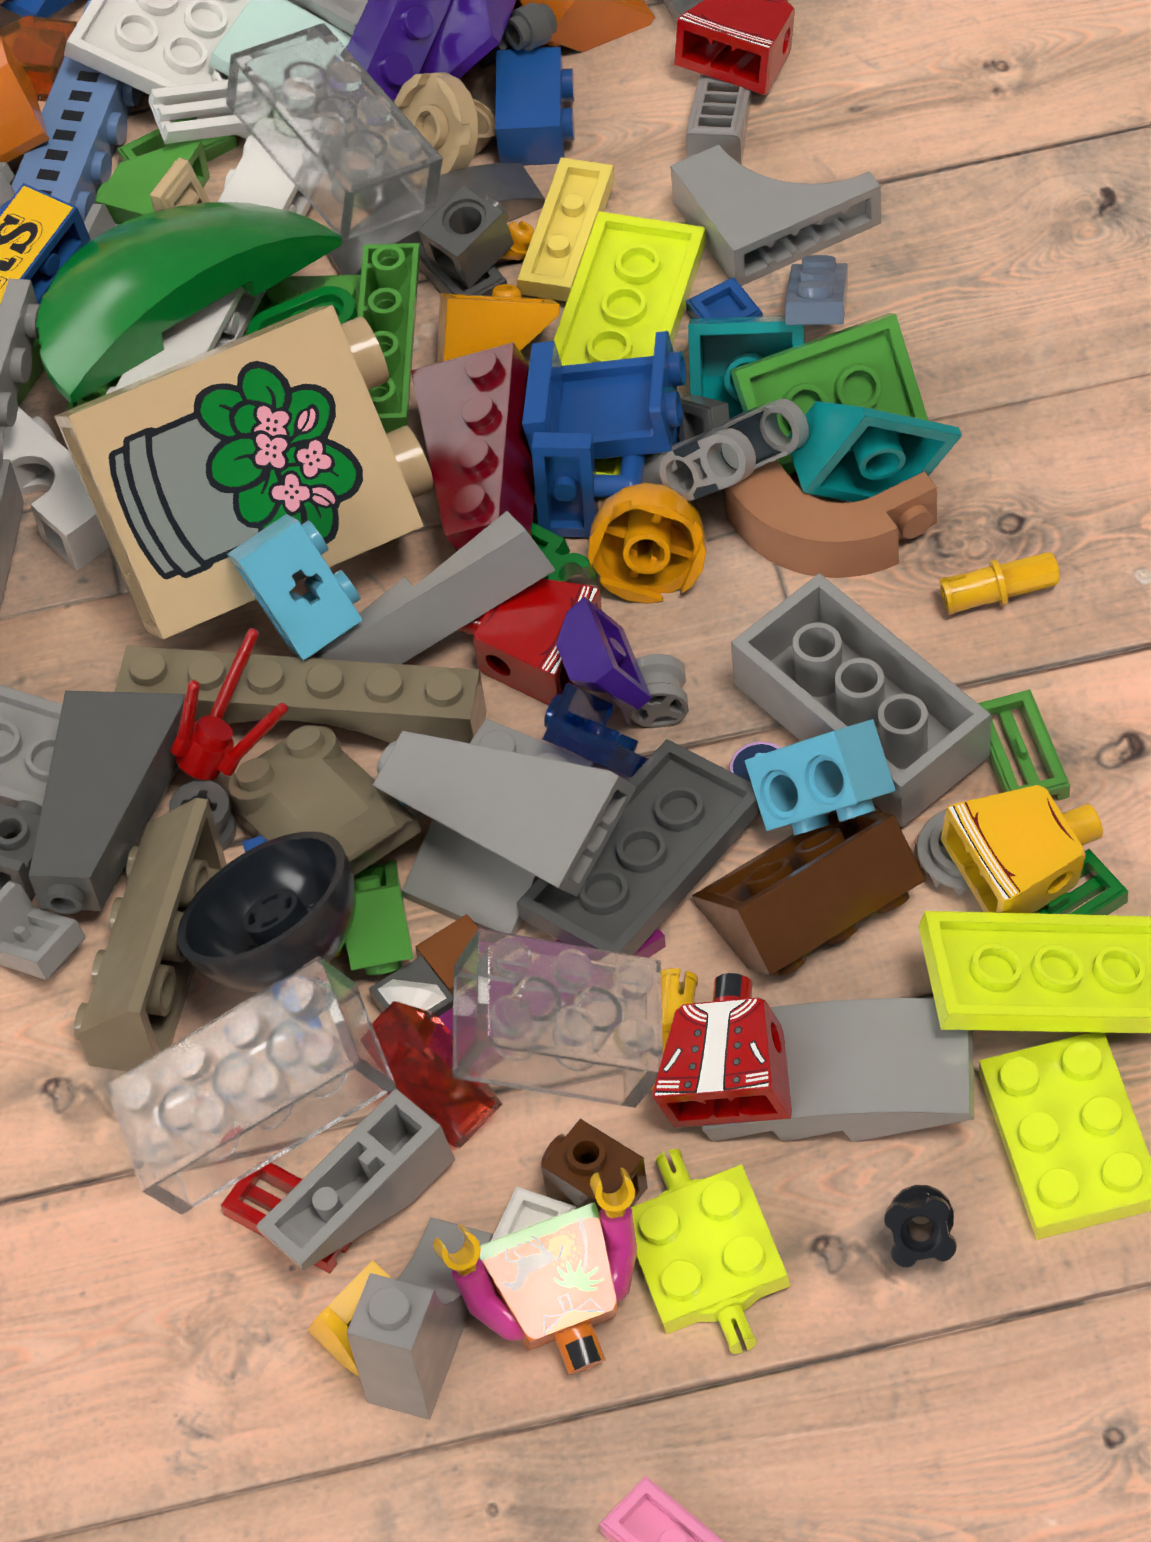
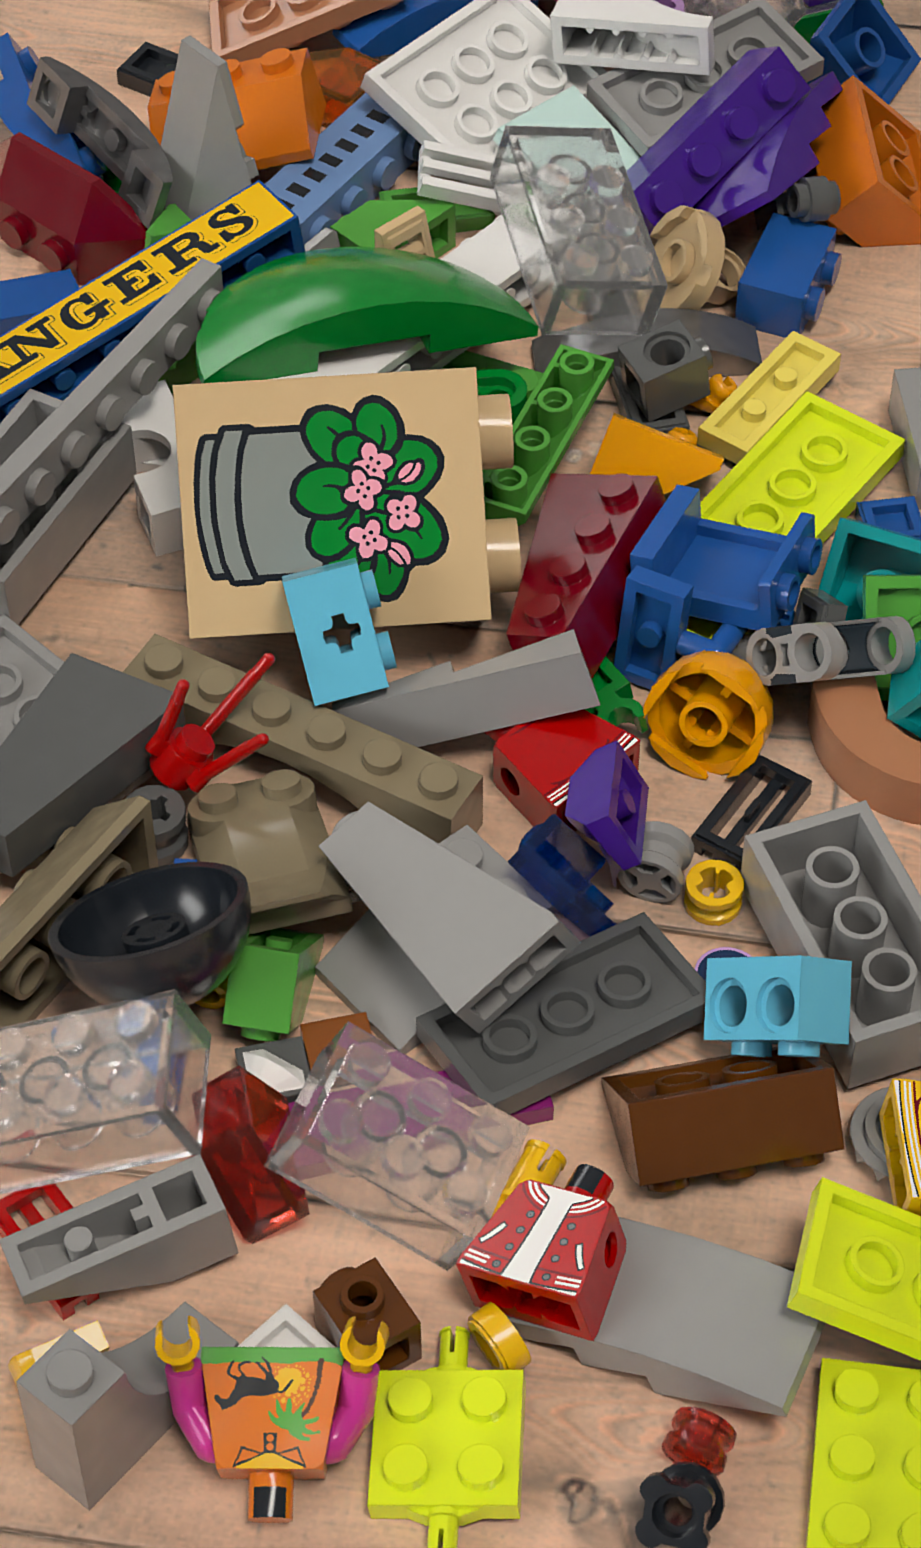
camera: 15 degrees right, 5 degrees down
(708, 1146) = (498, 1338): none -> yellow tile
(710, 656) = (729, 849): none -> black tile
(715, 682) = (710, 909): none -> yellow bush
(909, 1164) = (699, 1438): none -> clear red bush

